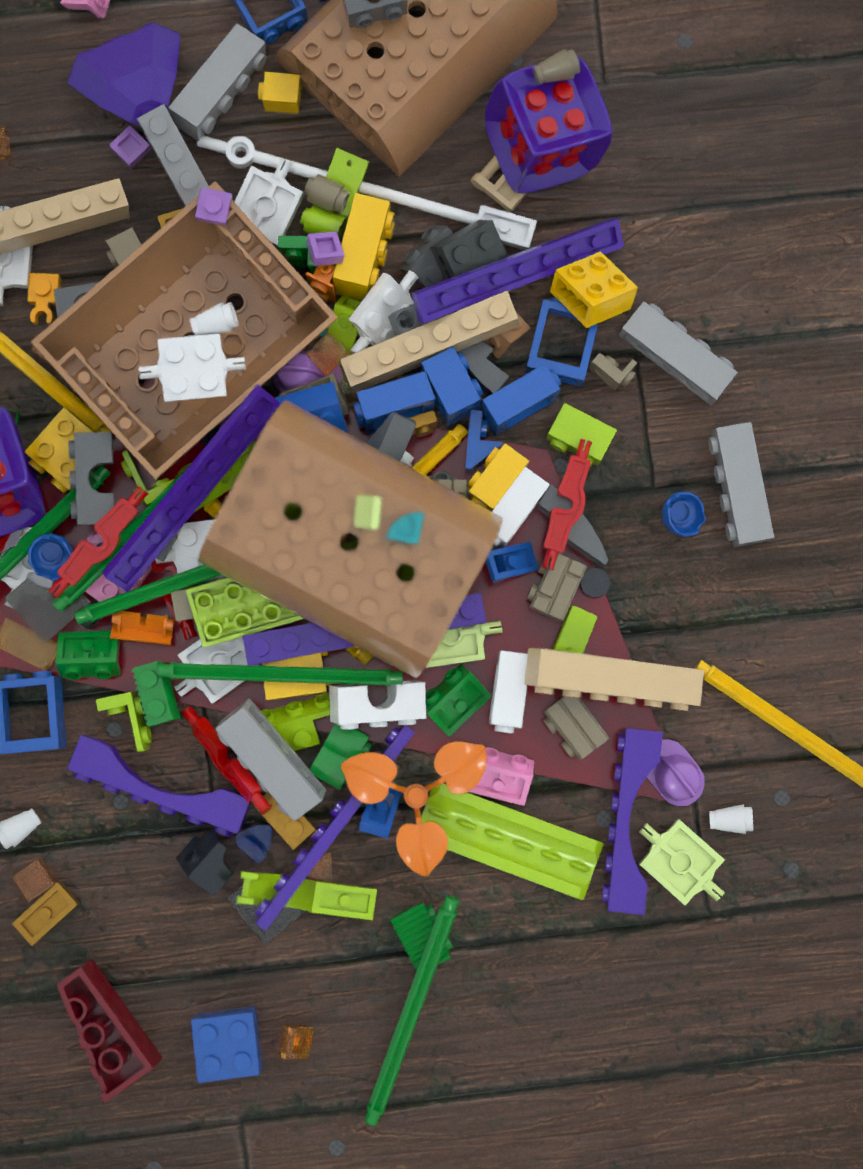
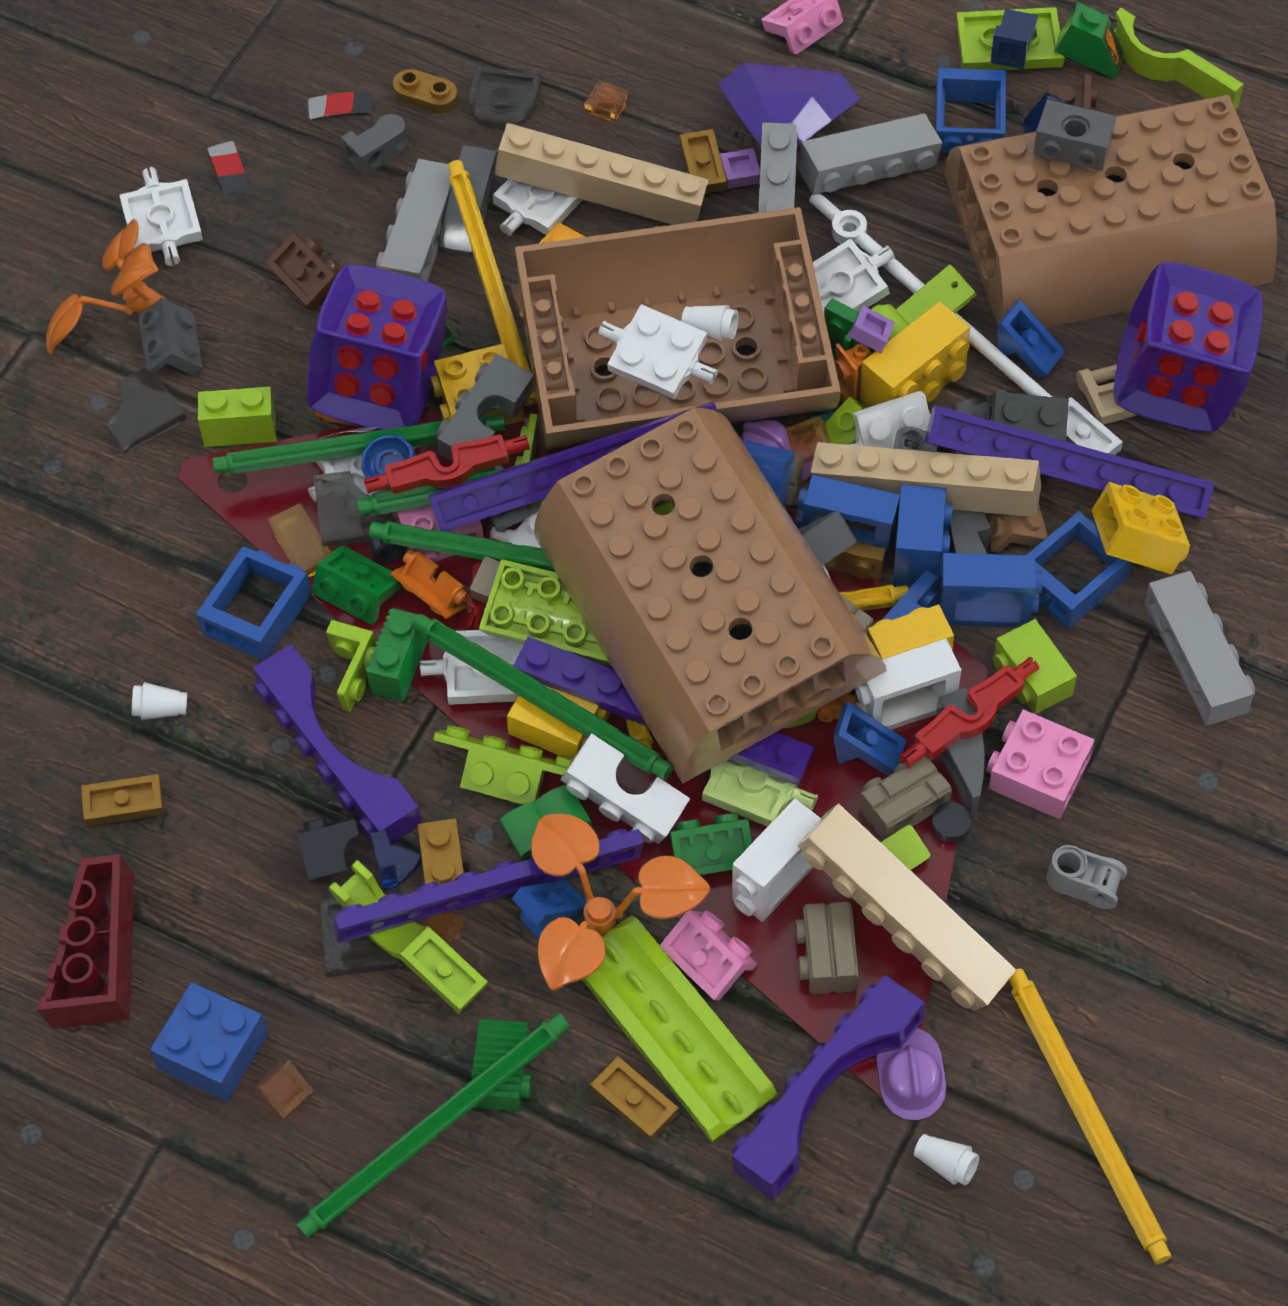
camera: 40 degrees right, 25 degrees down
(34, 880) = (135, 759): clear orange plate -> none
(99, 156) = (703, 159): none -> pearl gold plate
(213, 206) = (782, 225): medium lavender plate -> none
(230, 769) = (420, 764): red piece -> none
(270, 760) = (469, 774): light grey brick -> none
(280, 92) = (928, 197): yellow brick -> none
(326, 194) = (909, 297): dark tan brick -> none
(367, 511) = (742, 539): yellowish green slope -> none
(407, 528) = (770, 579): teal tile -> none
(426, 175) = (1025, 335): none -> blue slope
(518, 904) = (634, 1099): none -> pearl gold plate
(557, 67) = (1226, 281): dark tan cone -> none
(608, 370) = (1110, 628): dark tan bracket -> none
(627, 505) = (1039, 763): none -> bright pink brick
(681, 862) = (855, 1168): yellowish green plate -> none
(683, 514) = (1099, 805): blue hair -> none
(708, 569) = (1088, 876): none -> light grey piece
(741, 484) = (1187, 816): light grey brick -> none

